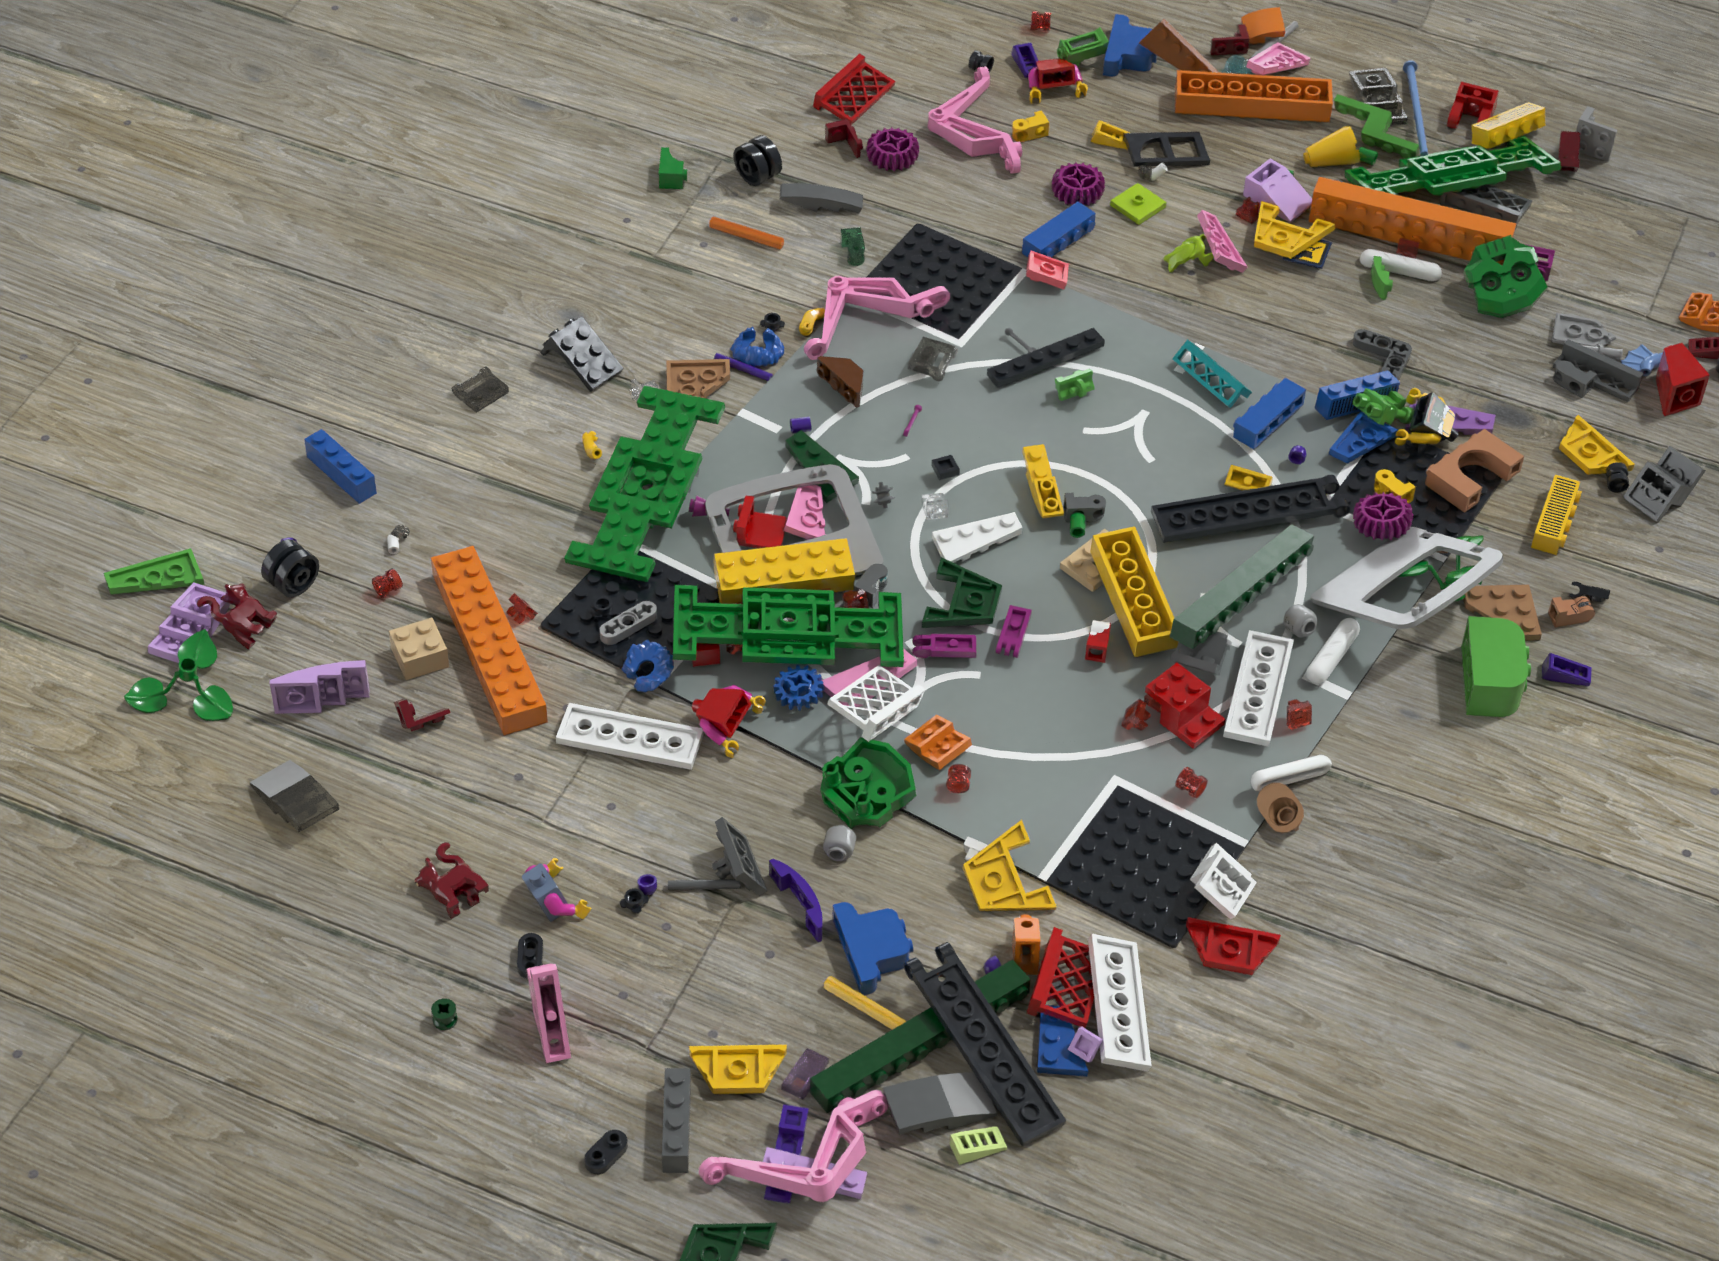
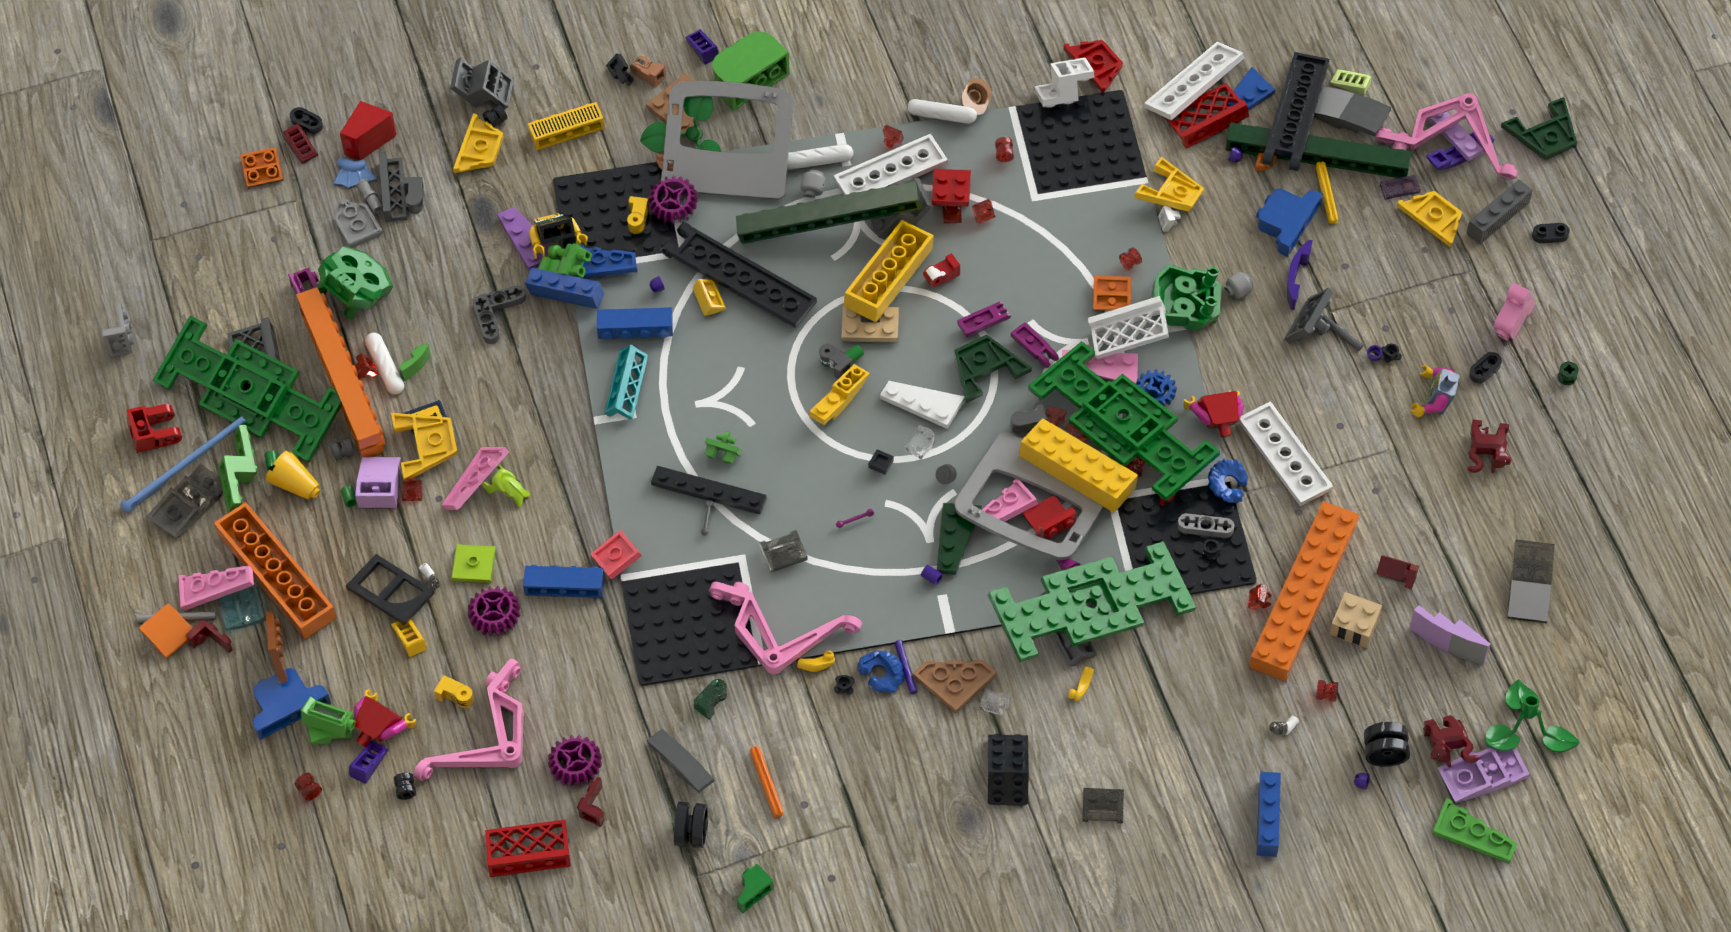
camera: 130 degrees left, 10 degrees up
(843, 376) = (861, 582): reddish brown slope -> none
(1026, 933) = (1206, 144): orange torso -> none
(1085, 1044) = (1241, 71): lavender tile -> none
(1481, 450) = (593, 195): nougat arch -> none
(1508, 125) = (154, 390): yellow brick -> none
(1569, 151) = (160, 337): dark red bracket -> none

